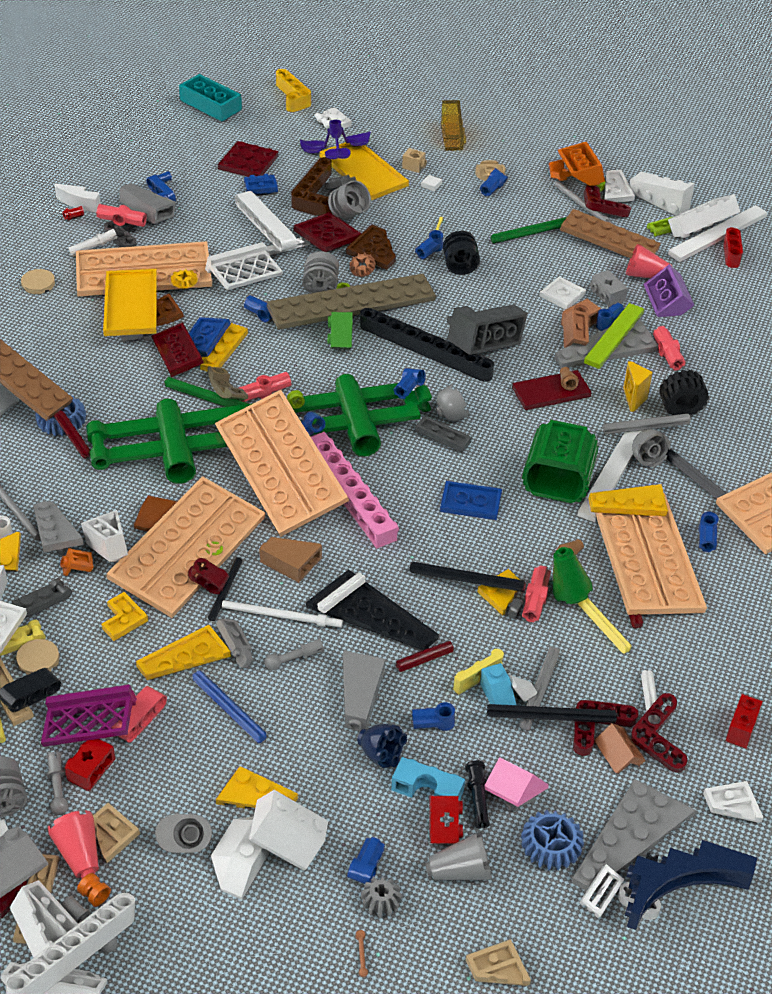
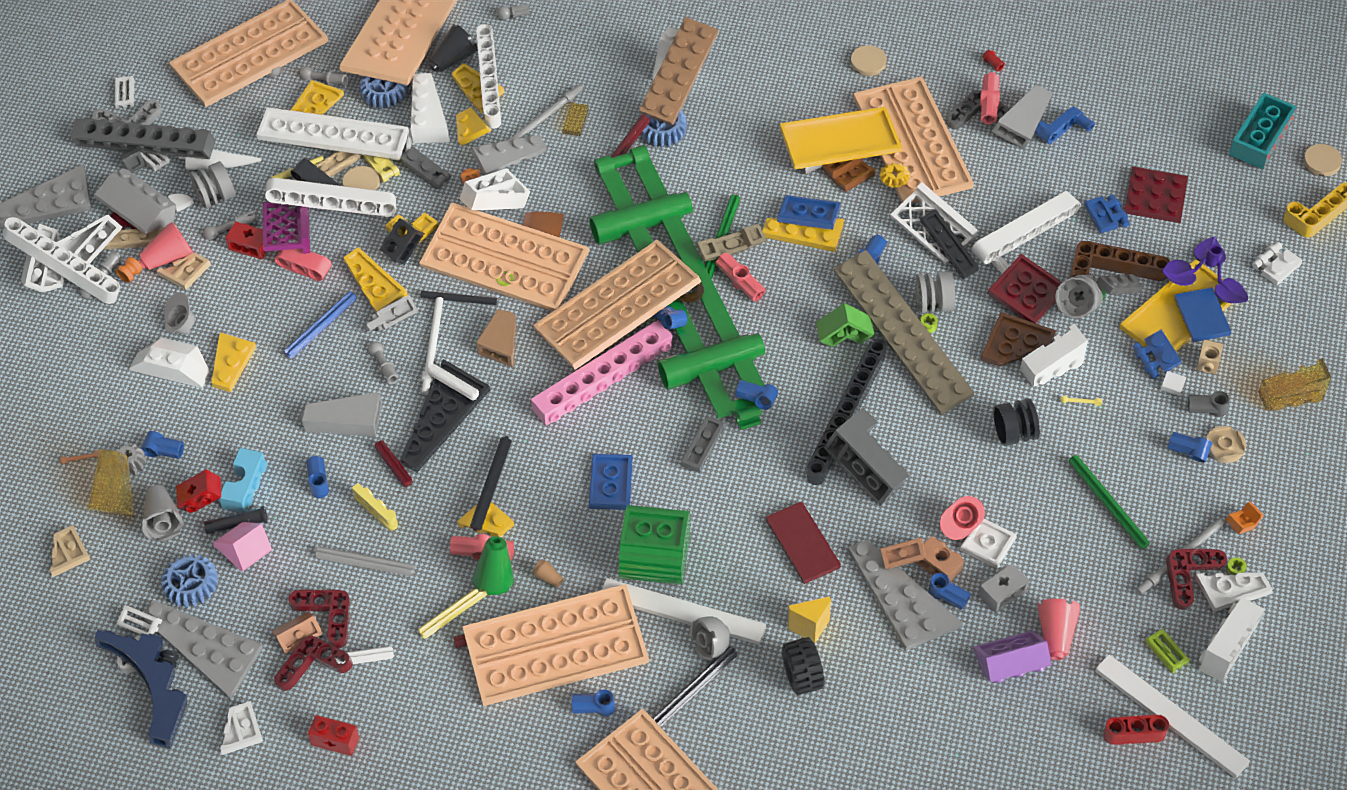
camera: 85 degrees right, 10 degrees up
(21, 478) = (575, 119): none -> clear yellow tile
(65, 672) = (318, 196): none -> white beam
(77, 196) = (1020, 58): white slope -> none
(99, 239) = (944, 90): white pin -> none
(150, 615) = (405, 243): none -> black brick
(177, 349) = (780, 193): dark red tile -> none
(209, 576) = (460, 280): dark red piece -> none
(243, 83) = (1322, 160): none -> tan tile
(268, 262) = (949, 244): none -> black tile
(287, 829) = (176, 378): white slope -> none
(297, 403) = (710, 300): lime bush -> none
(362, 271) = (979, 337): nougat gear -> none
(375, 155) = (1202, 314): none -> blue tile
(383, 744) = (278, 439): dark blue piece -> none
(399, 225) = (1056, 358): none -> white wedge
(404, 178) = (1163, 352): none -> blue plate
(425, 904) = (111, 485): none -> clear yellow wedge
(430, 245) = (1036, 394): blue piece -> none
(451, 404) = (743, 443): light grey cylinder -> none
(456, 167) = (1215, 404): none -> dark grey piece
(497, 685) = (354, 524): medium azure slope -> none
(515, 608) = (459, 529): dark grey tile -> none
(523, 687) = (356, 541): white slope -> none
(543, 295) = (962, 517): none -> coral piece
(551, 713) = (323, 543): black axle -> none
(568, 379) = (812, 550): medium nougat cone -> none
(583, 163) = (1254, 536): orange slope -> none
(606, 234) = (1113, 585): medium nougat plate -> none
(614, 336) = (904, 594): lime tile -> none
(633, 501) = (621, 626): yellow wing -> none
(648, 423) = (754, 636): light grey axle -> none
(669, 348) = (904, 658): coral piece -> none
(703, 216) = (1185, 687): white wedge -> none

